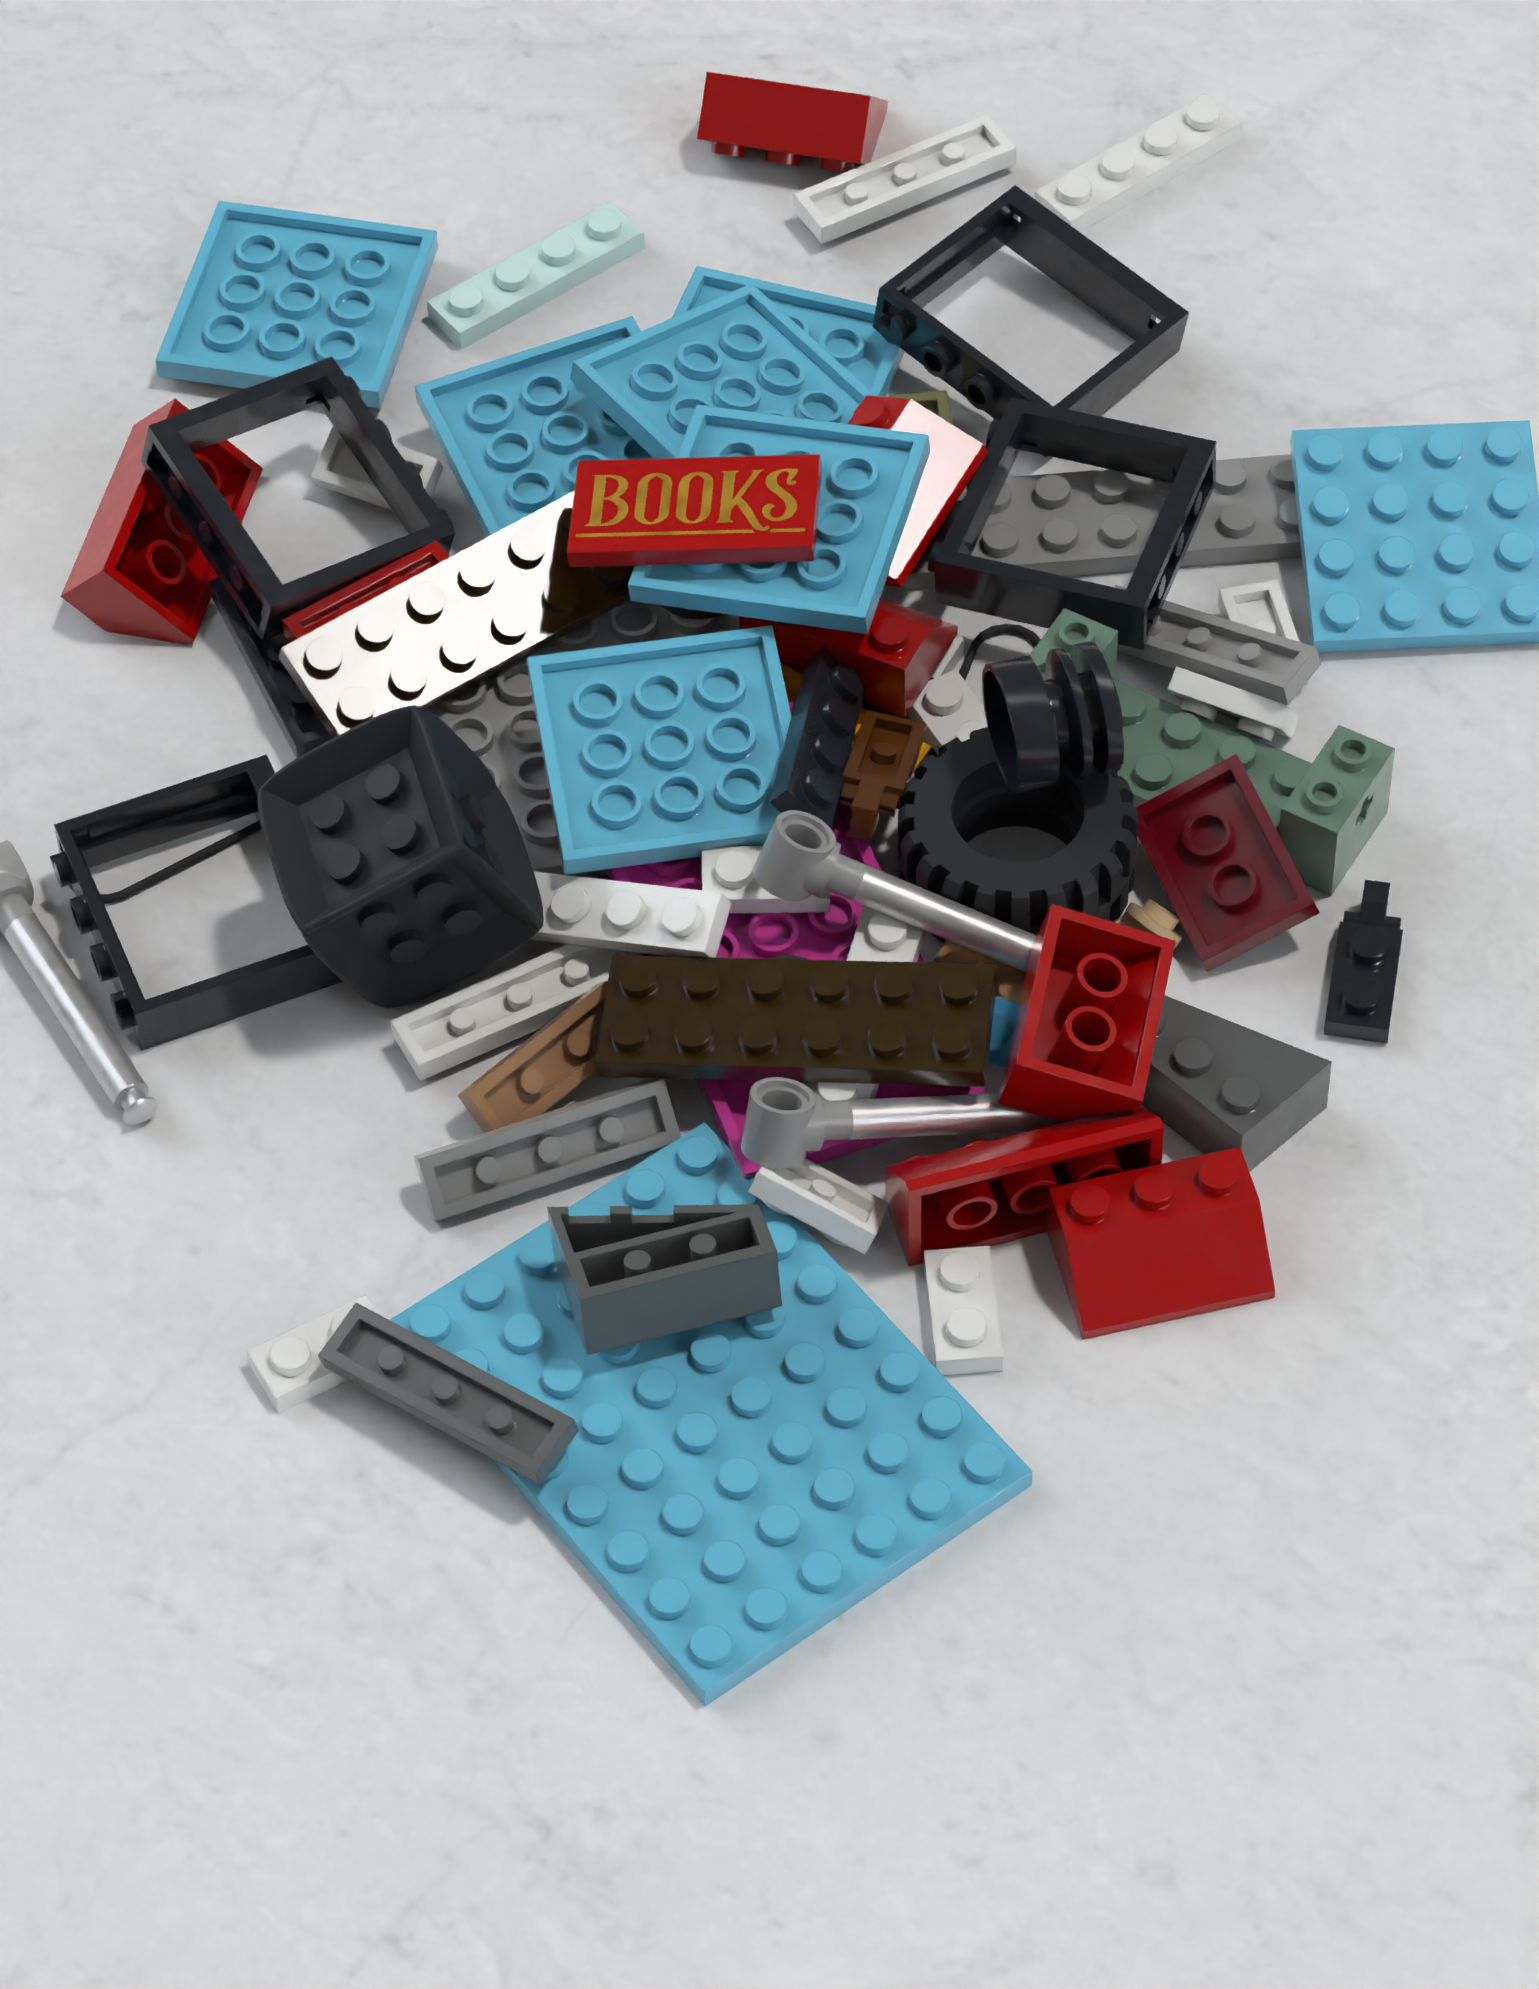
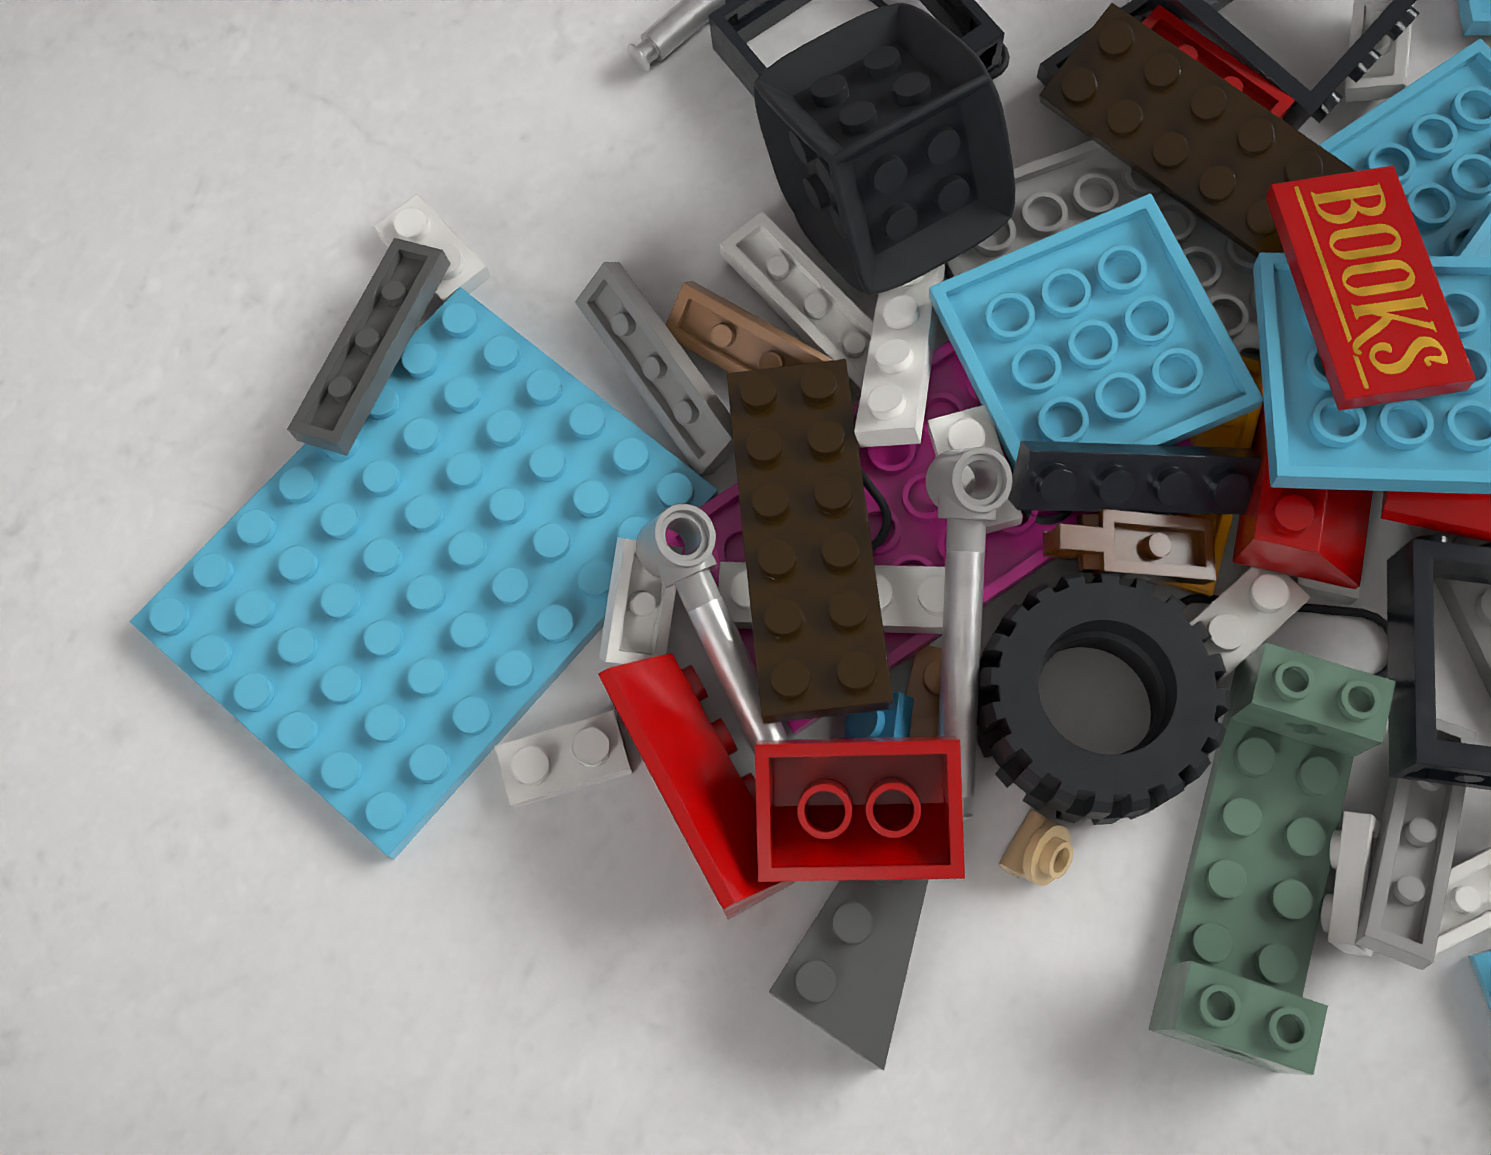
camera: 80 degrees right, 20 degrees up
(663, 1273) = (499, 475): dark grey wedge -> none
(1065, 714) = (1200, 691): black wheel -> none
(1160, 1242) = (655, 931): red slope -> none
(1223, 863) = (1133, 910): dark red plate -> none
(1365, 969) = (1054, 1083): black hinge -> none

